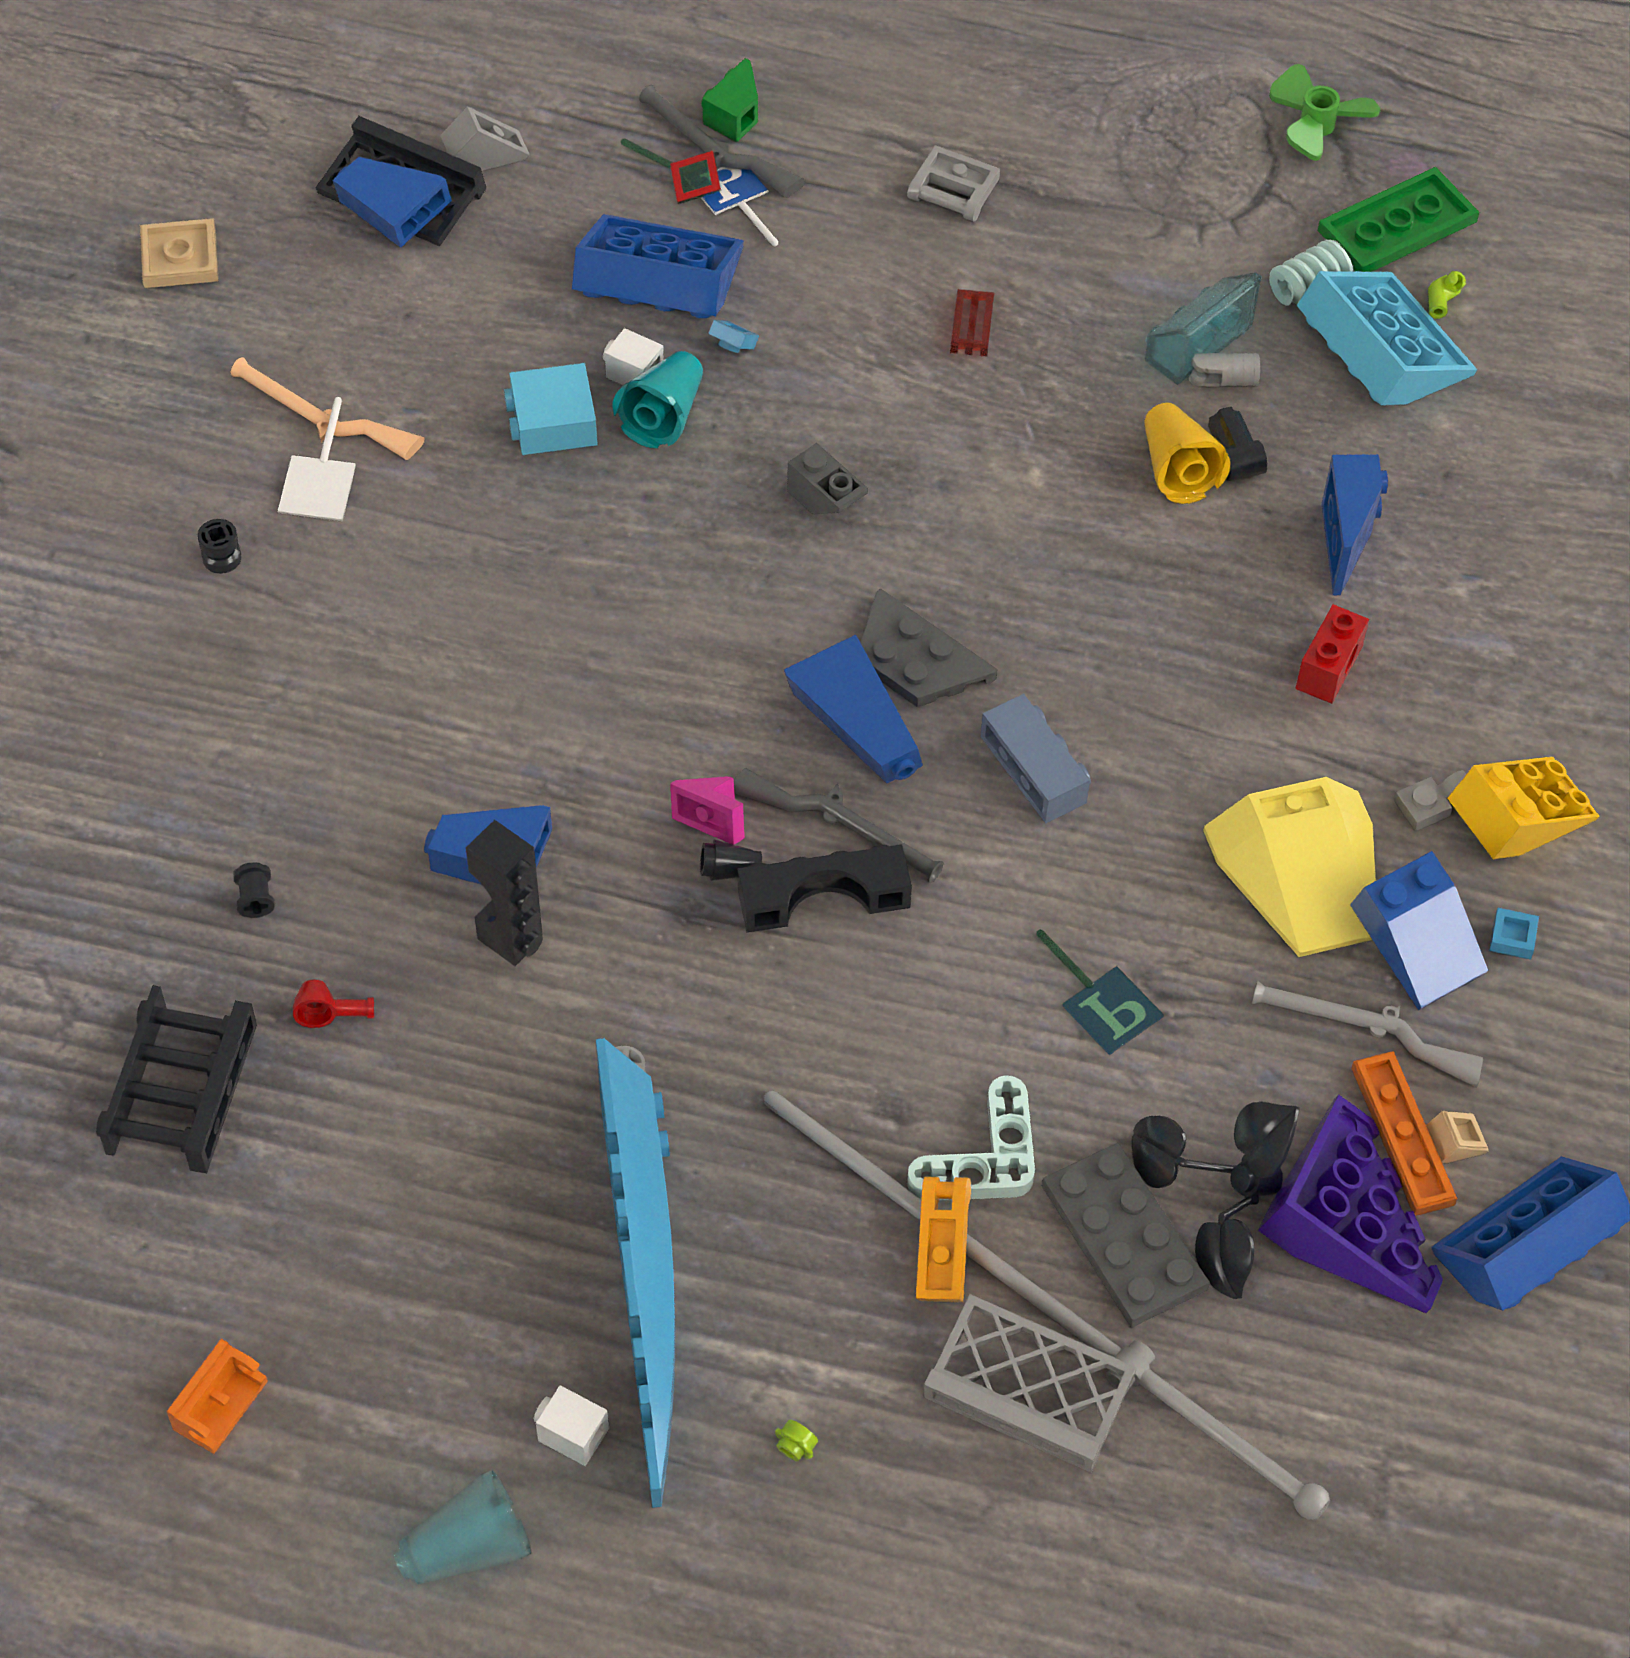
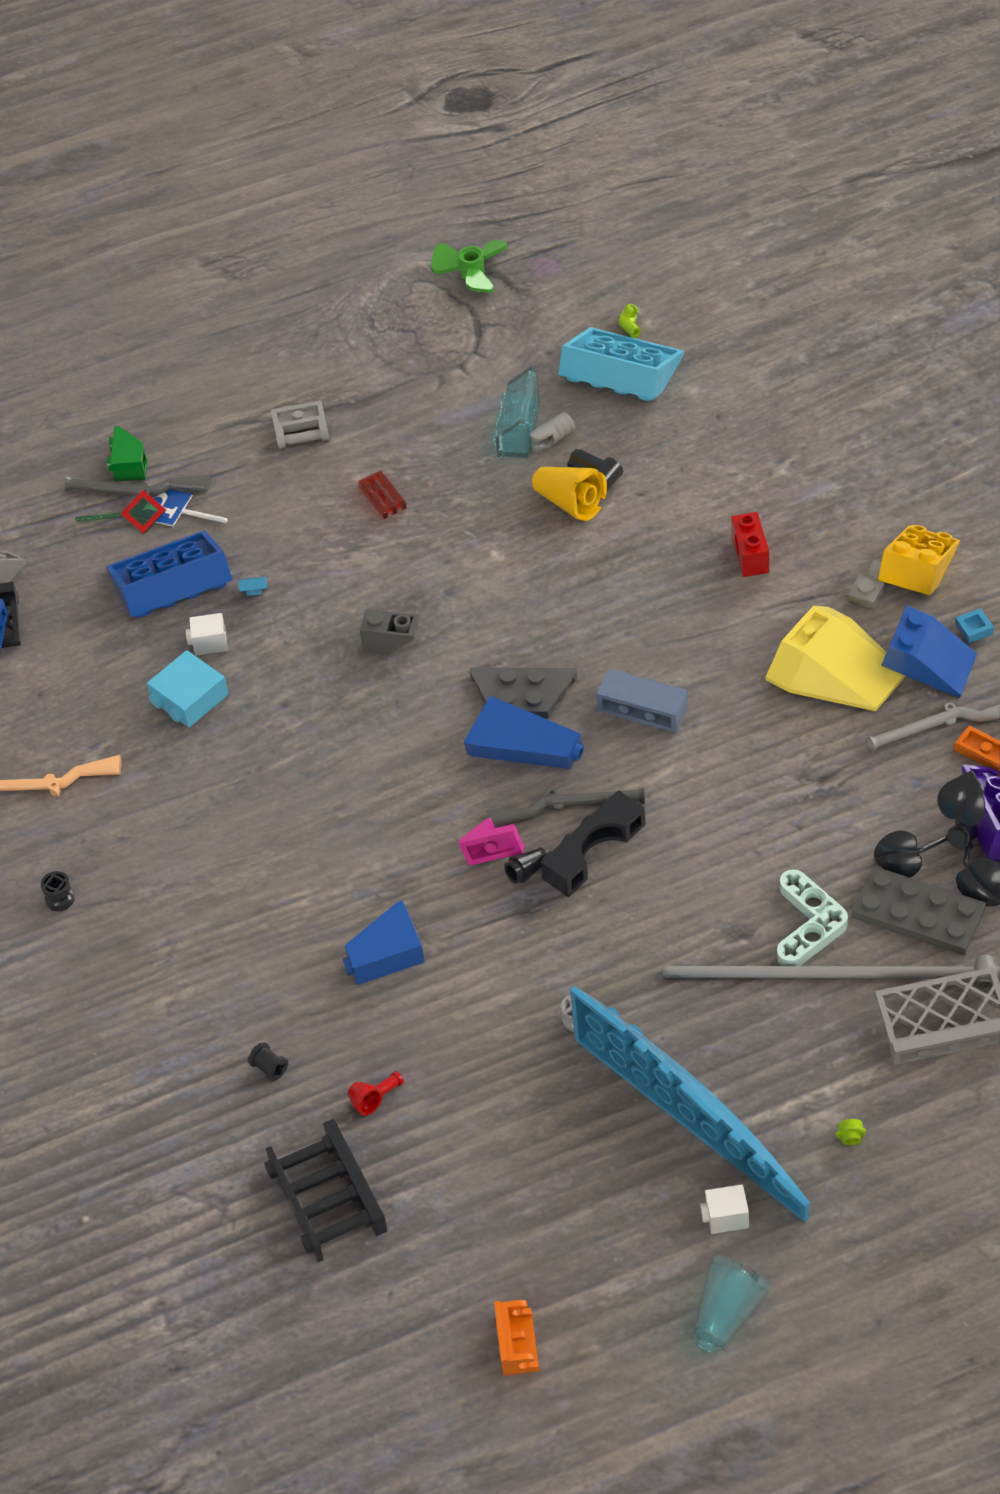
camera: 30 degrees left, 5 degrees down
(318, 485) = (80, 821): white piece -> none
(508, 873) = (433, 936): black arch -> none
(659, 400) = (248, 646): teal cone -> none
(943, 1240) = (833, 976): light orange plate -> none
(1108, 1008) = (798, 802): piece -> none
(1295, 275) = (548, 351): light aqua piece -> none
(1349, 511) = (693, 465): blue slope -> none
(1399, 220) = (569, 297): green plate -> none

